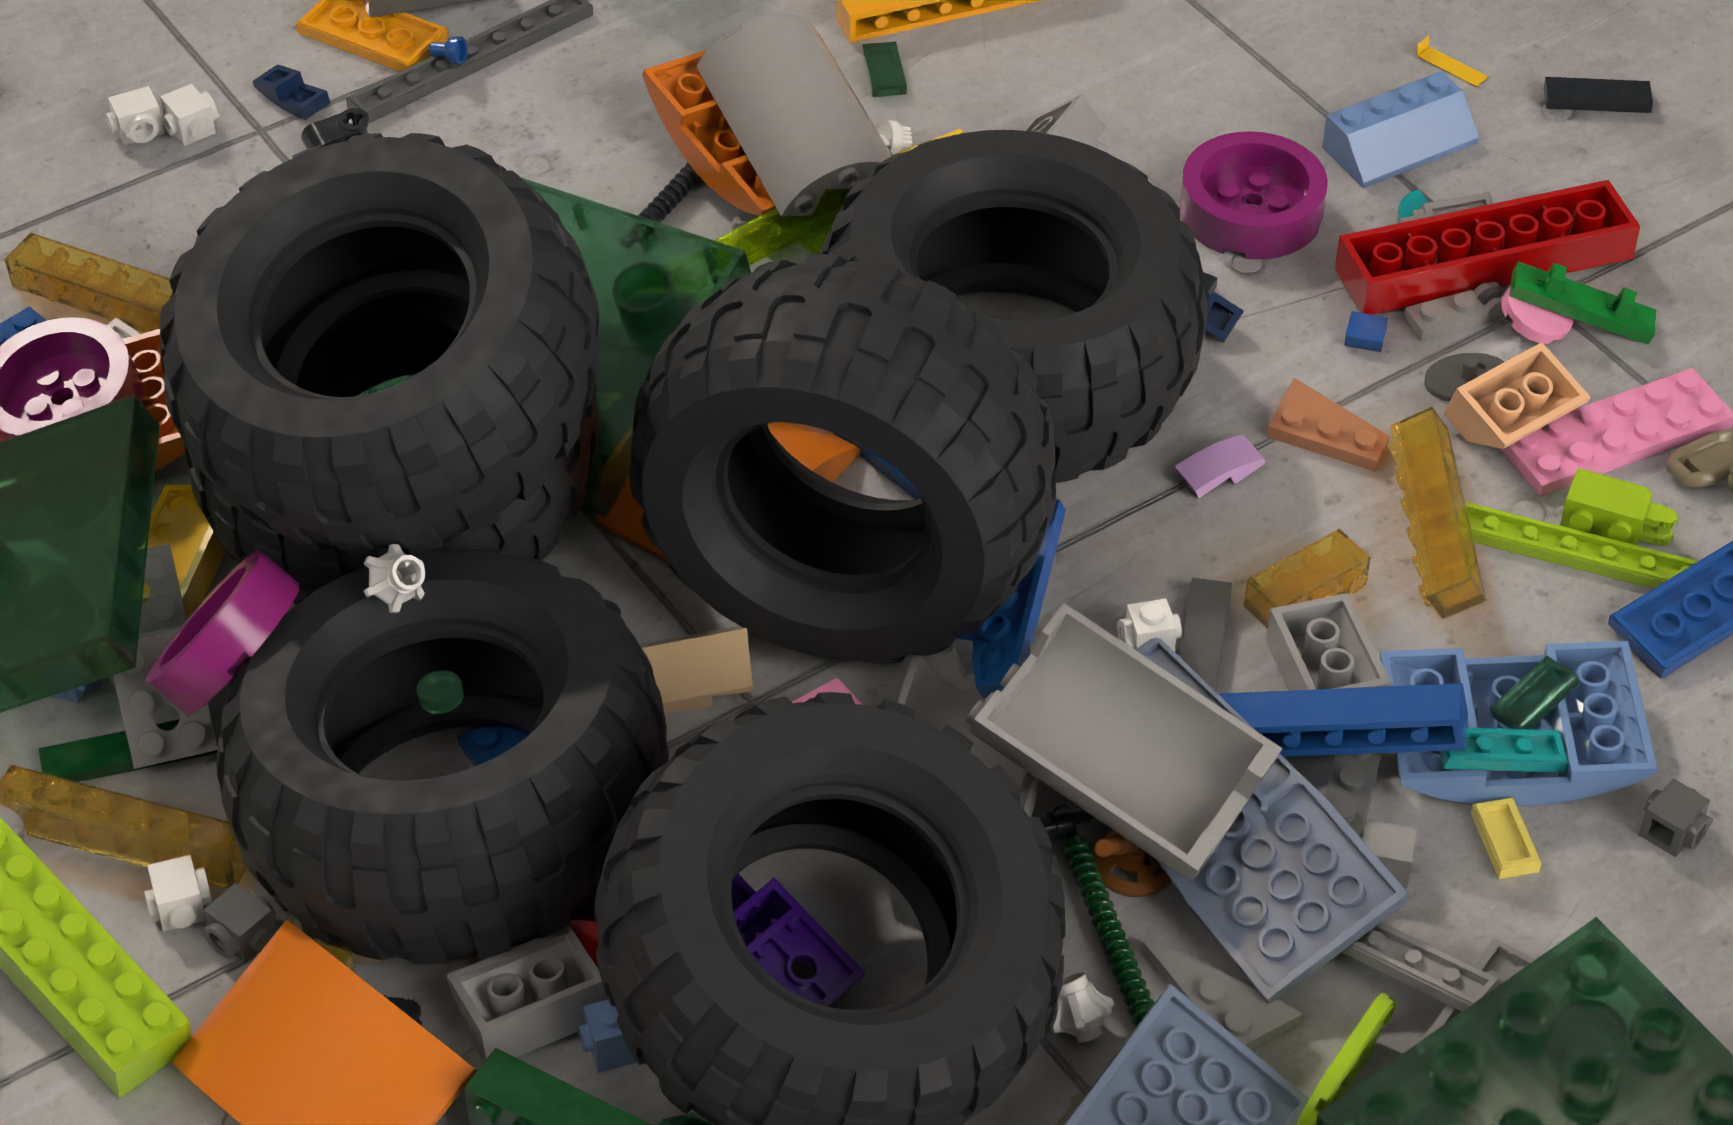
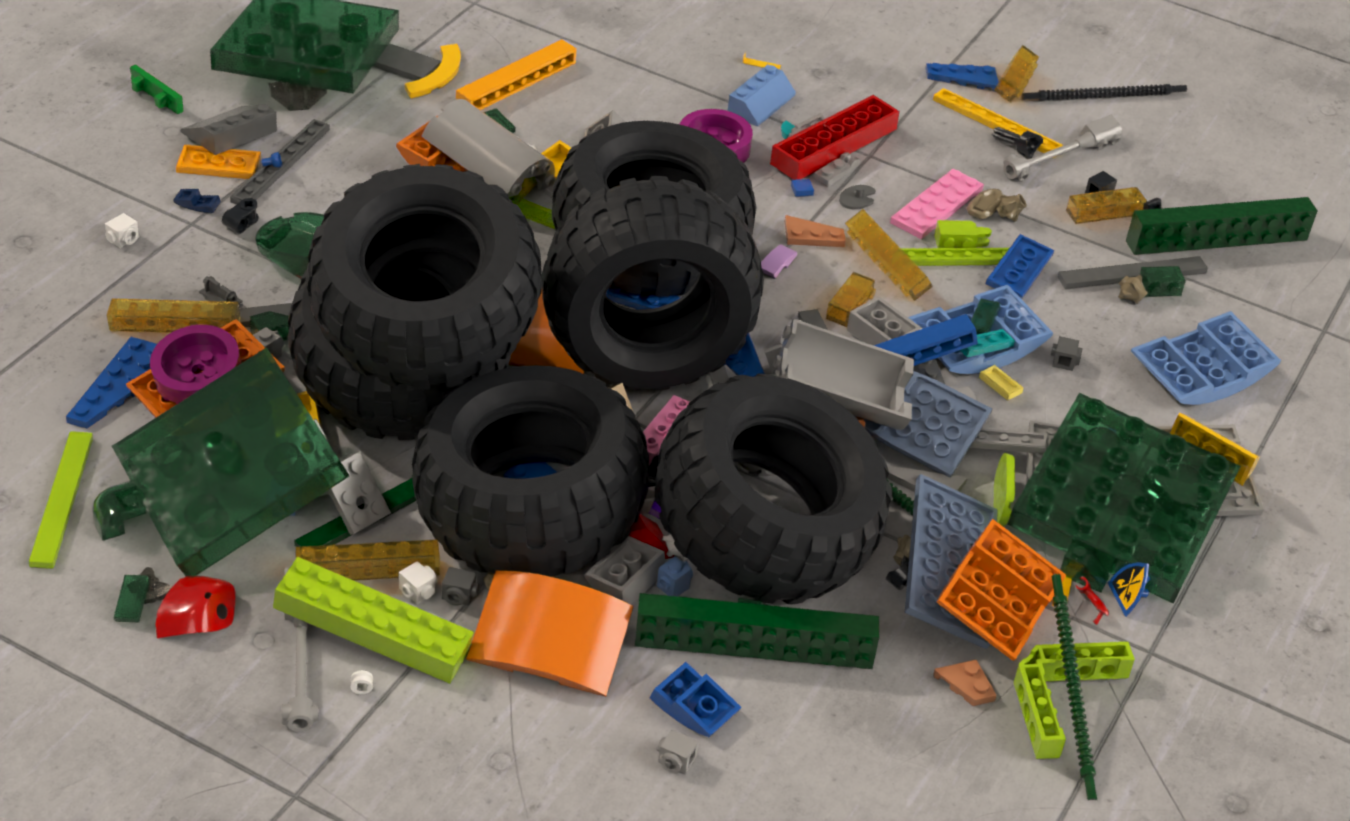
camera: 30 degrees left, 5 degrees down
(189, 114) = (151, 223): white brick -> none
(223, 633) = (394, 443): magenta brick -> none
(395, 577) = (483, 386): white rock -> none
(440, 692) = (542, 431): clear green tile -> none
(1514, 399) = (892, 198): light nougat slope -> none
(1535, 322) = (873, 159): bright pink tile -> none
(1582, 302) = (880, 149): green hinge -> none
(1598, 94) = (835, 62): black tile -> none

